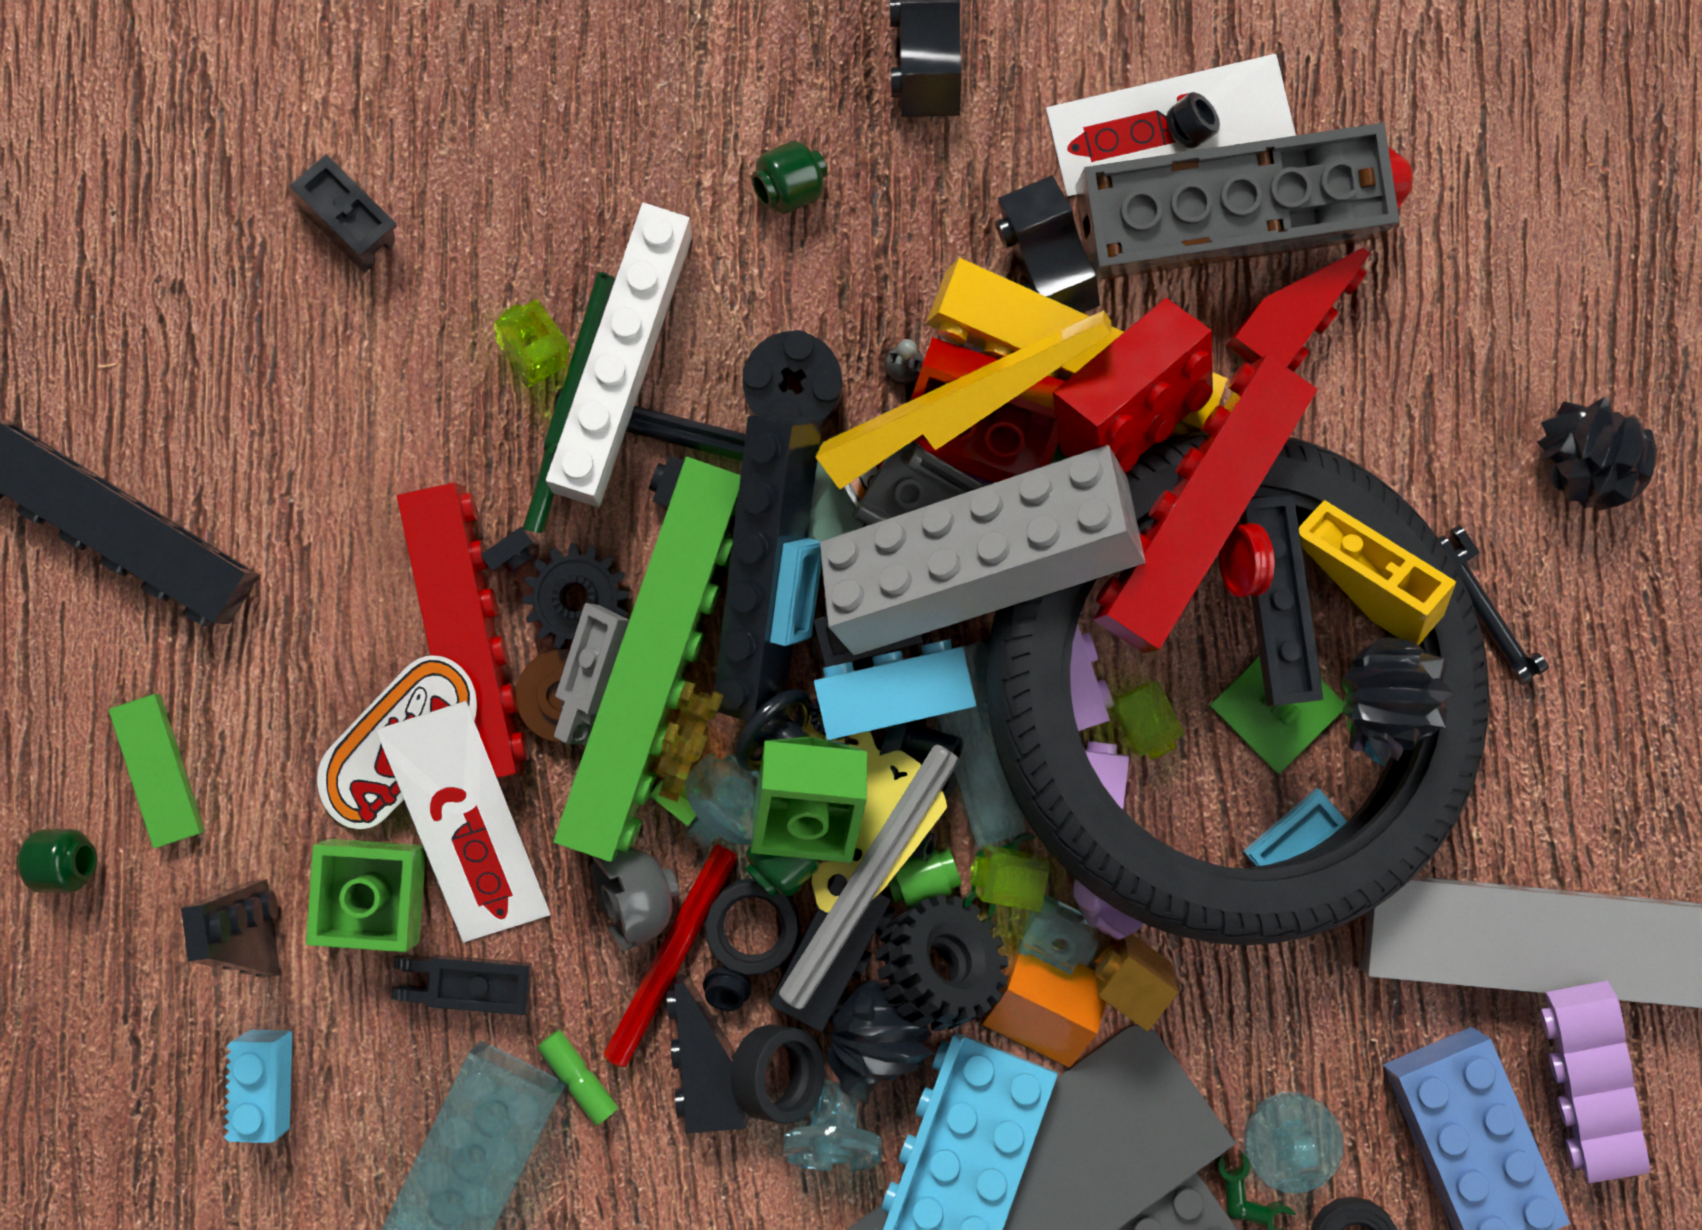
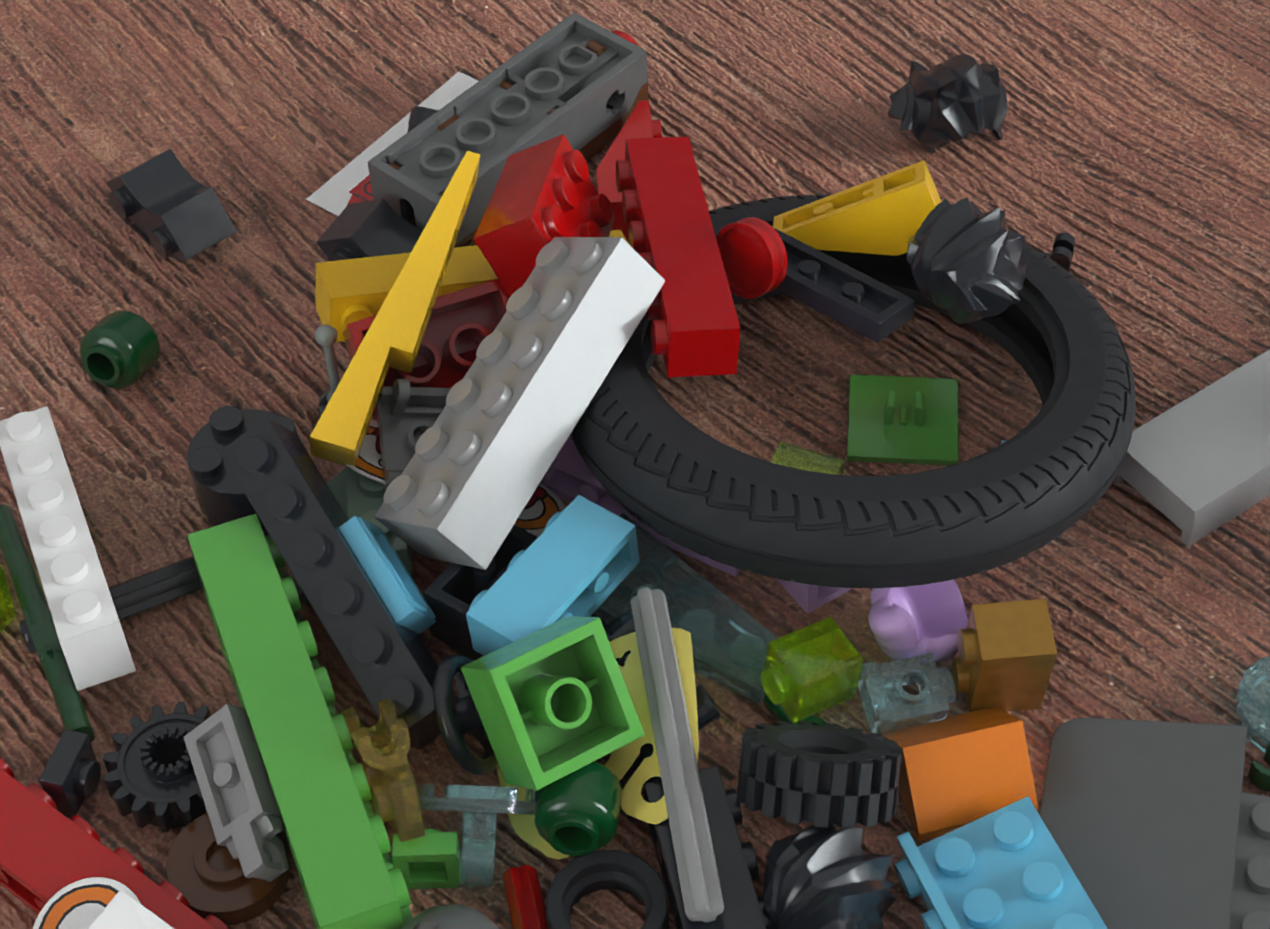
camera: 45 degrees left, 40 degrees down
(665, 480) = (191, 617): black plate -> none
(925, 879) = (723, 738): bright green brick -> none

